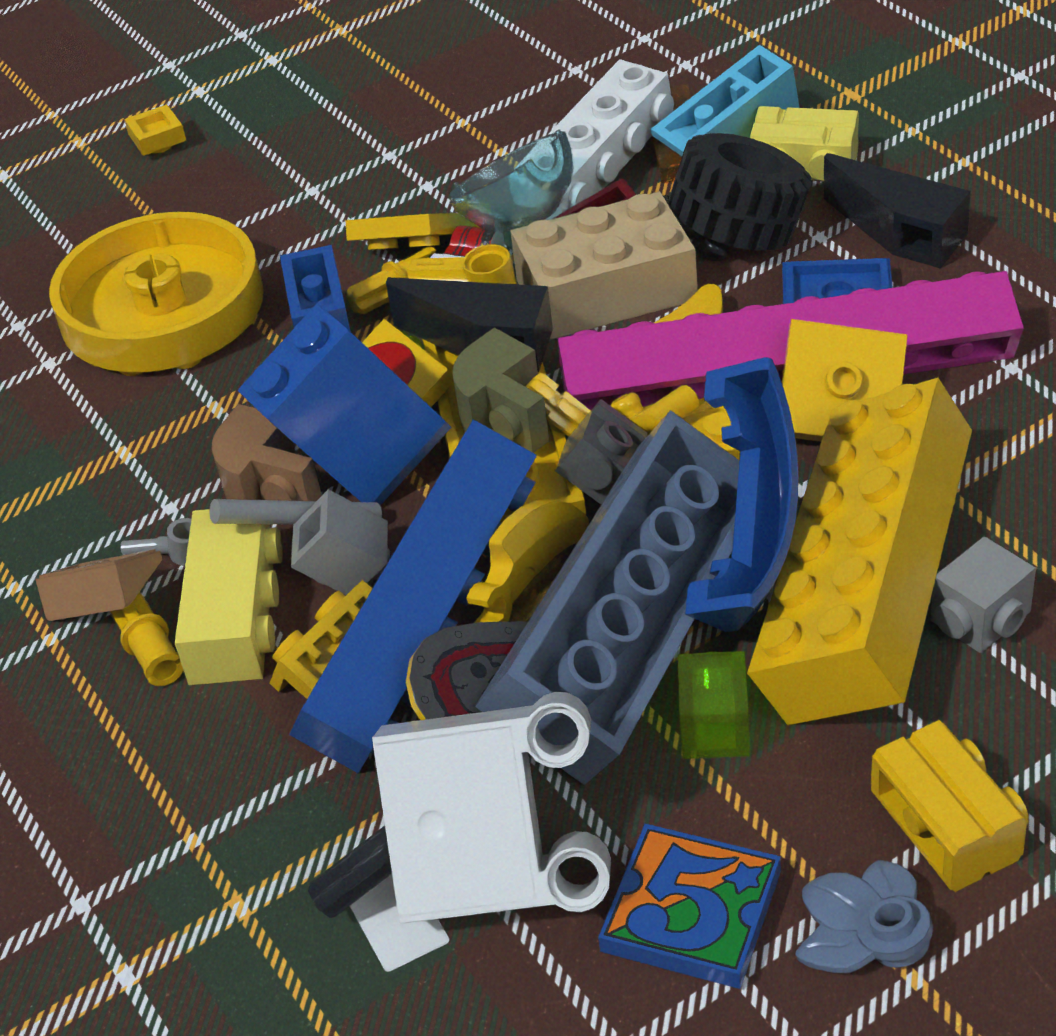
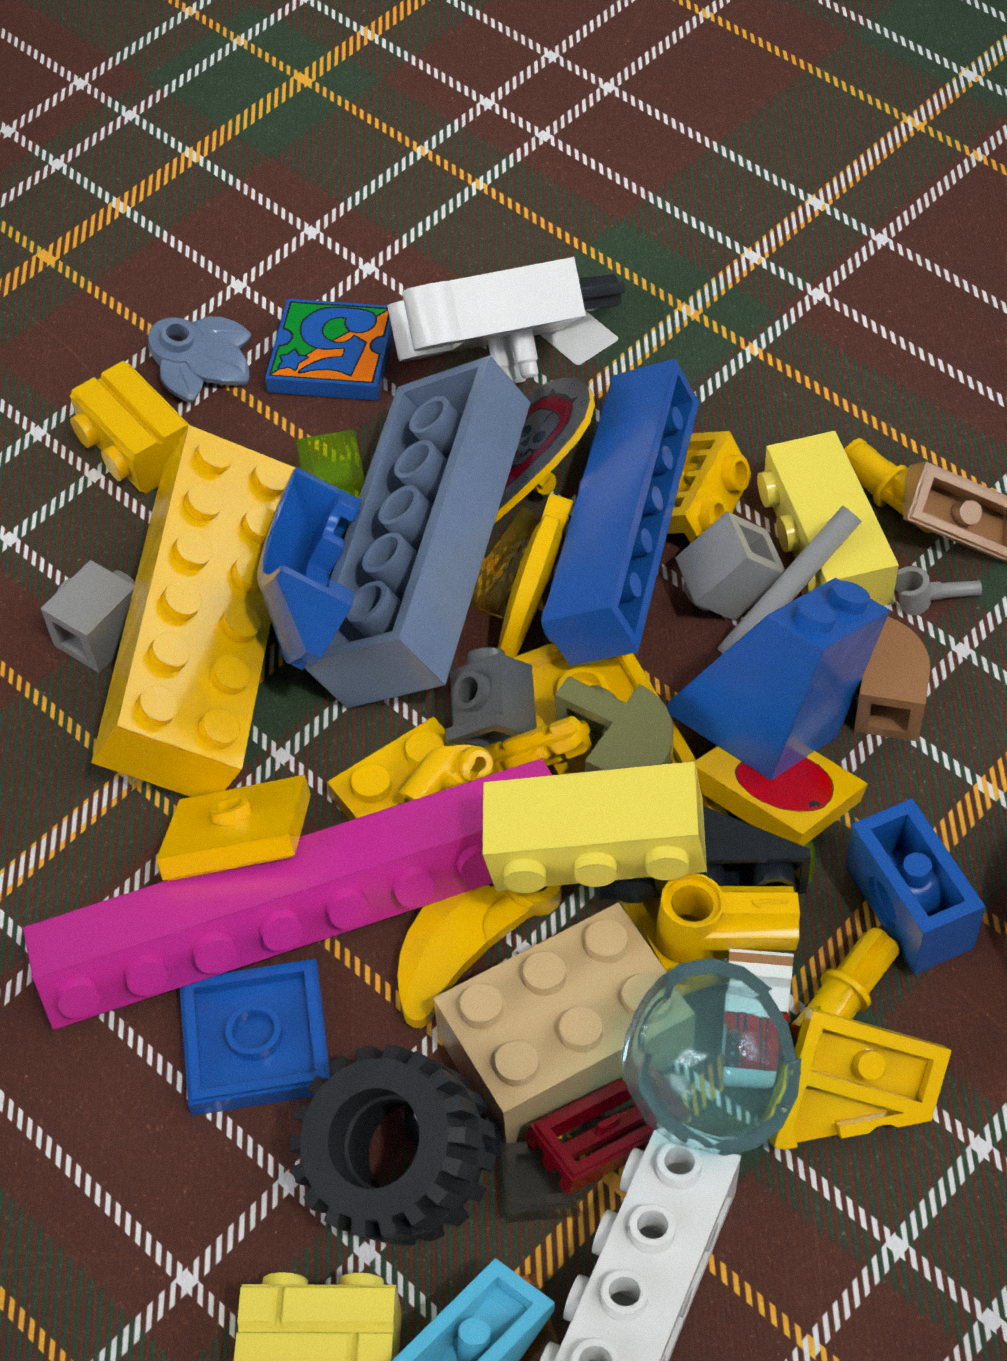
camera: 165 degrees right, 10 degrees up
(543, 273) = (594, 827): none -> light yellow brick
(899, 210) = (159, 1181): black slope -> none

